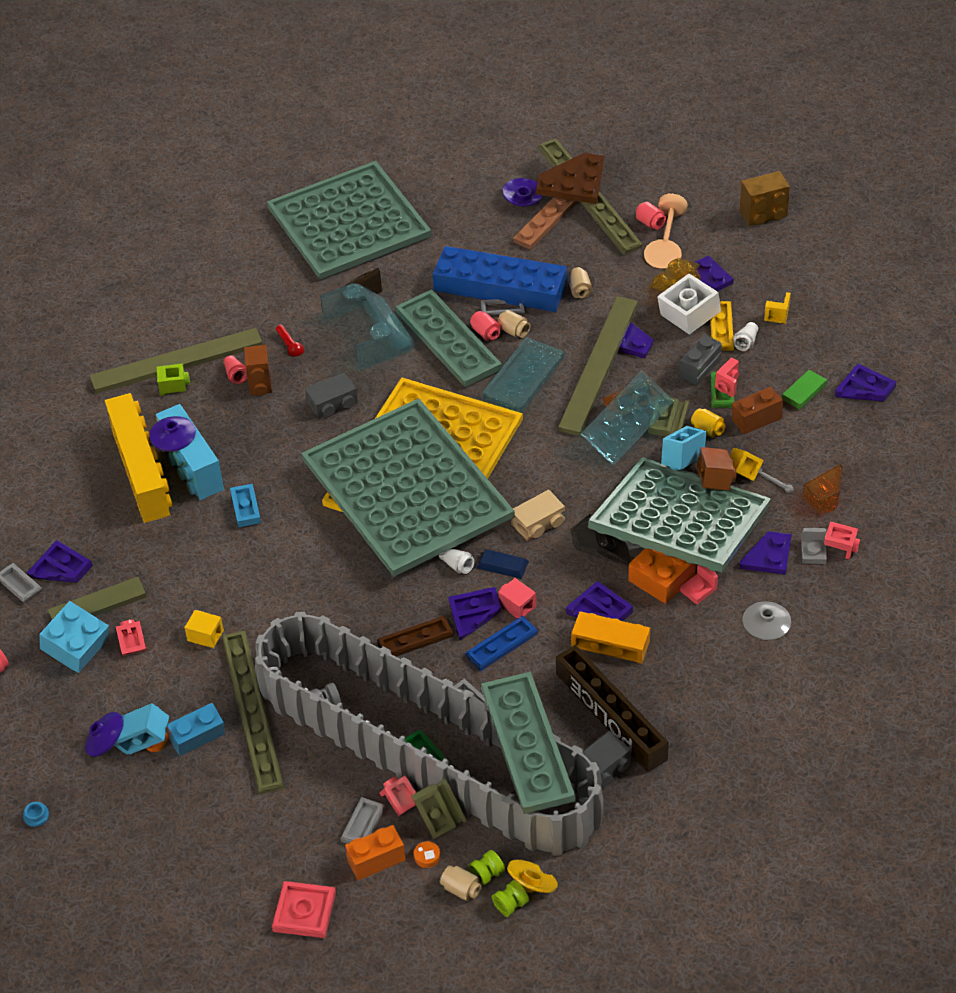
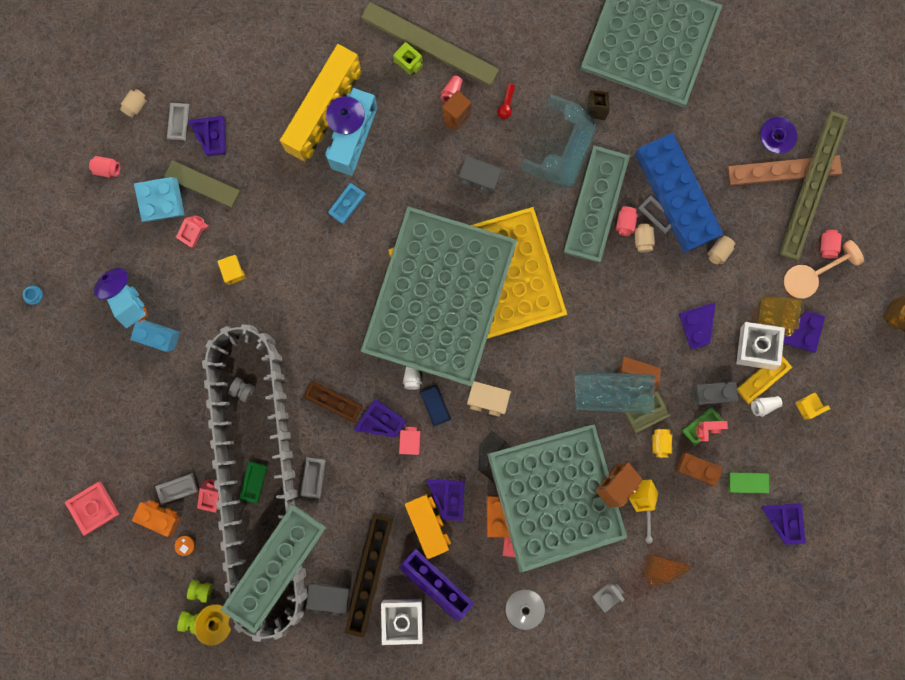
camera: 45 degrees right, 35 degrees up
(252, 713) = (192, 363): olive tile -> none
(439, 808) = (206, 533): olive plate -> none
(460, 882) = (178, 585): tan brick -> none
(501, 643) = (371, 458): blue tile -> none
(523, 375) = (604, 283): clear light blue plate -> none
(574, 179) = (816, 165): reddish brown plate -> none
(598, 366) = (653, 328): olive tile -> none
(674, 662) = (436, 585): none -> dark purple brick
(682, 447) = (620, 450): medium azure brick -> none
(683, 711) = (402, 621): none -> white brick
(769, 554) = (581, 571): dark purple wing -> none
(843, 538) = (627, 613): coral bracket -> none

